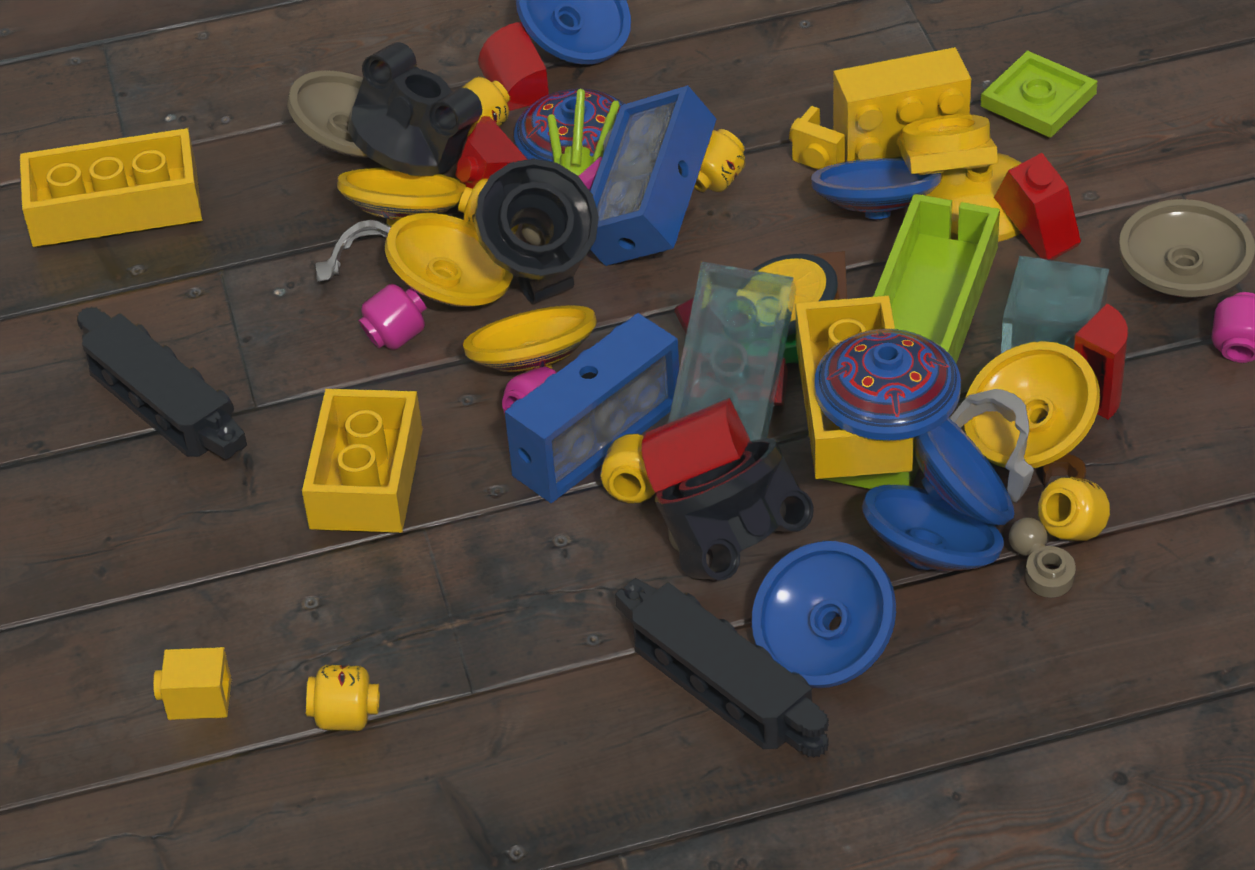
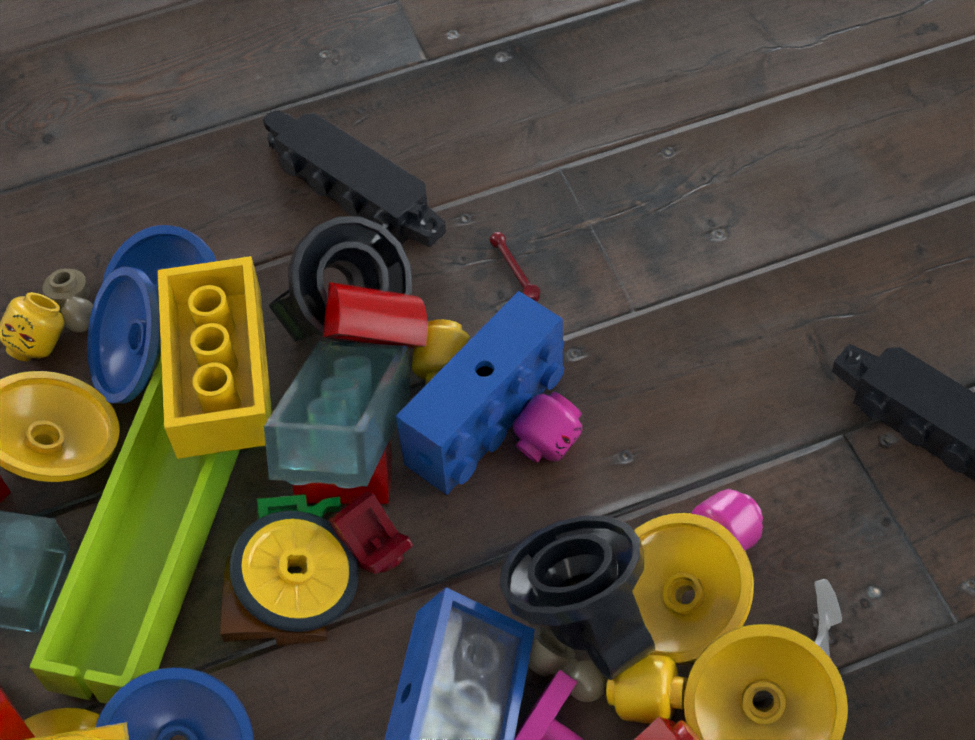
camera: 175 degrees right, 10 degrees up
(194, 683) = (788, 133): yellow brick -> none
(341, 698) = (660, 124): yellow head -> none
(363, 460) = (704, 332): yellow brick -> none
(531, 338) = (580, 454): yellow dish -> none
(532, 547) = (498, 241): none -> dark red hinge
(810, 591) = (261, 205): blue dish -> none
(887, 384) = (179, 329): dish -> none
(1012, 409) = (86, 407): light grey helmet -> none

